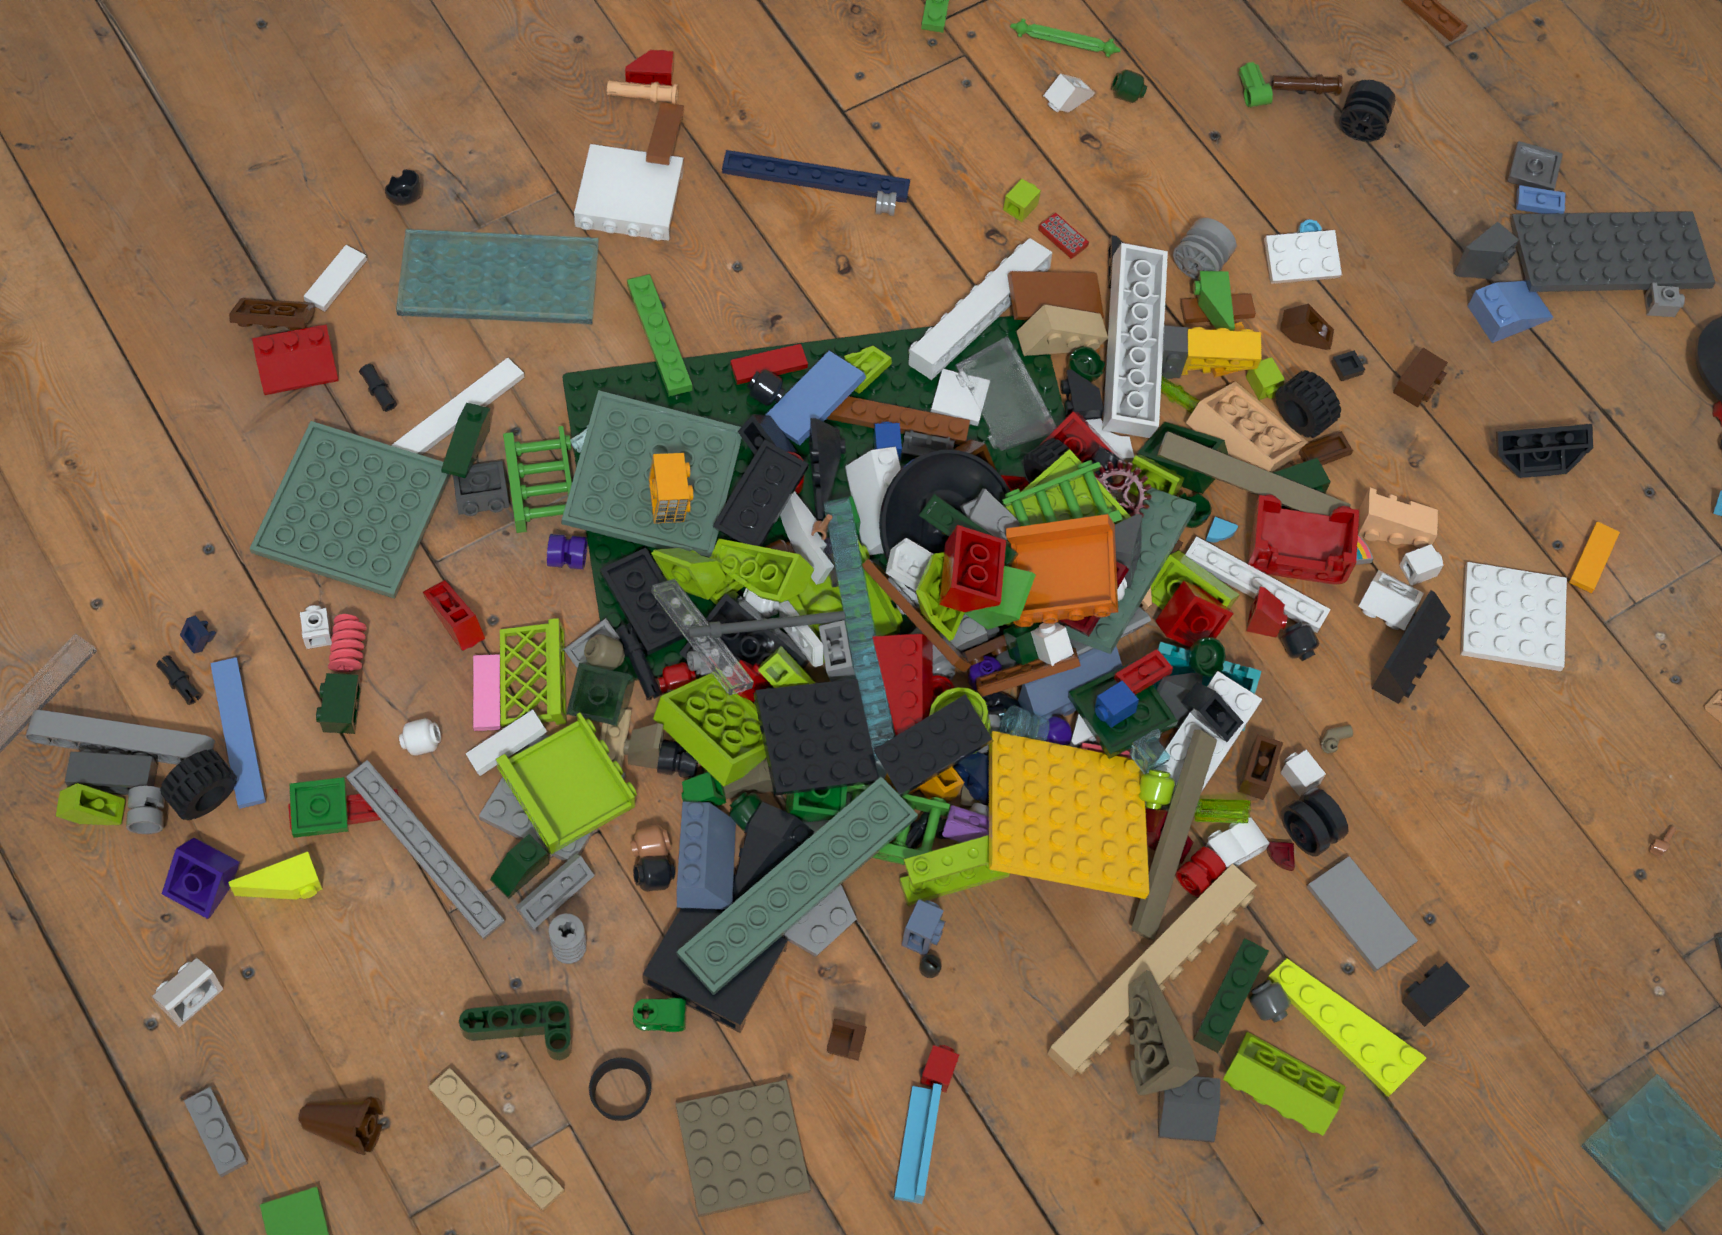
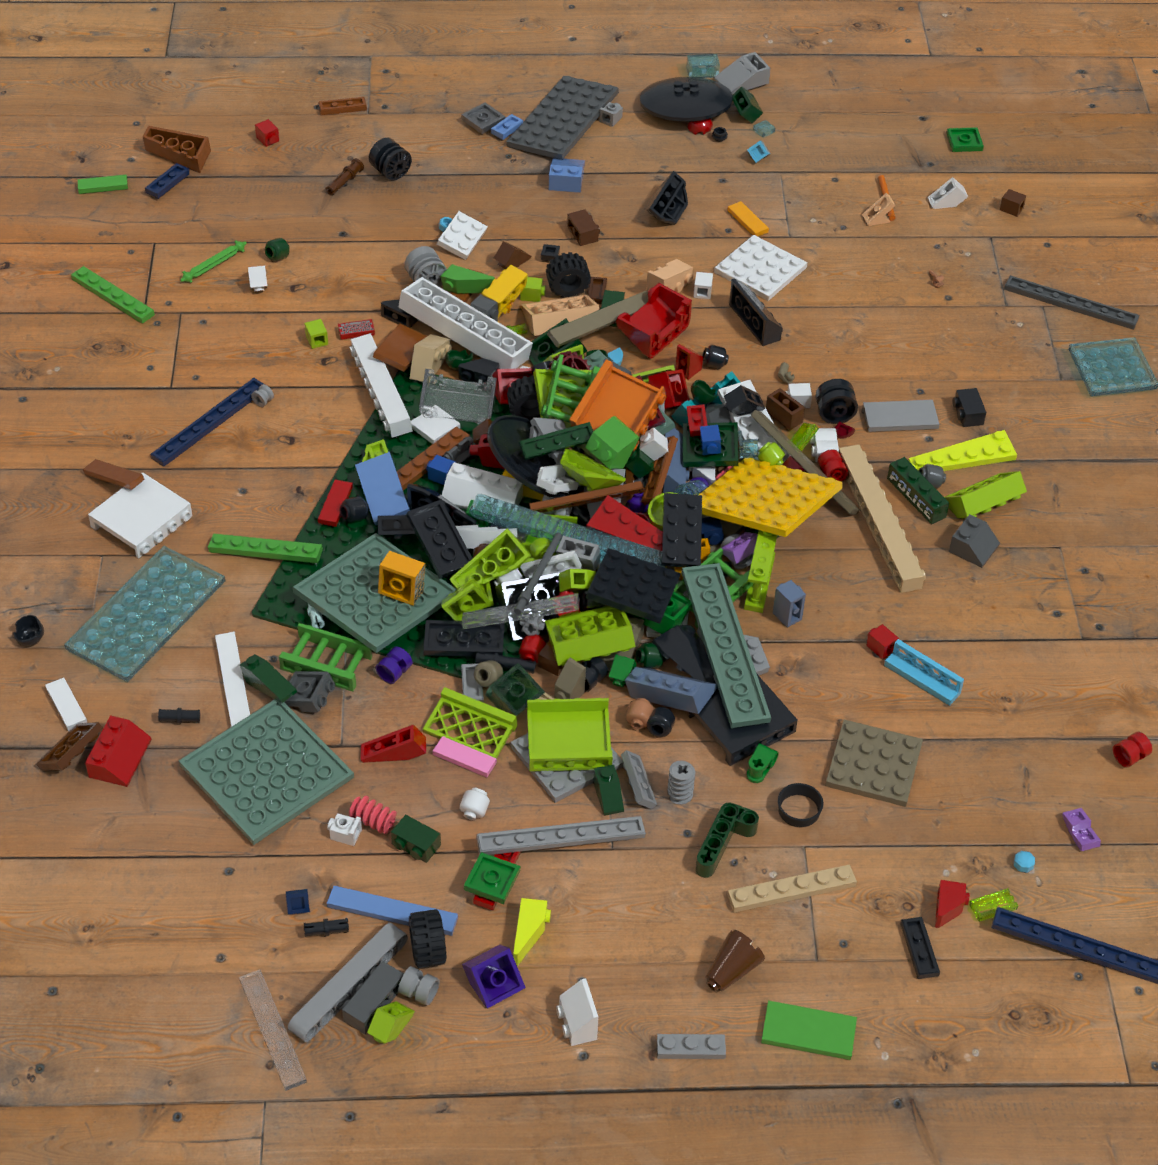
camera: 55 degrees left, 15 degrees down
(506, 741) = (513, 758): white tile -> none
(635, 90) = (71, 469): light nougat pin -> none
(651, 68) = (54, 460): red slope -> none
(822, 526) = (486, 521): nougat hand -> none
(846, 1039) = (836, 677): reddish brown panel -> none
(927, 969) = (810, 618): pearl dark grey hinge -> none
(972, 570) = (590, 443): red slope -> none
(1160, 1046) = (936, 528): dark tan wedge -> none
(1249, 579) = (665, 356): white plate -> none
(1256, 91) = (330, 199): bright green piece -> none
(1390, 600) = (717, 307): white slope -> none
(1488, 254) = (528, 158): dark grey slope -> none

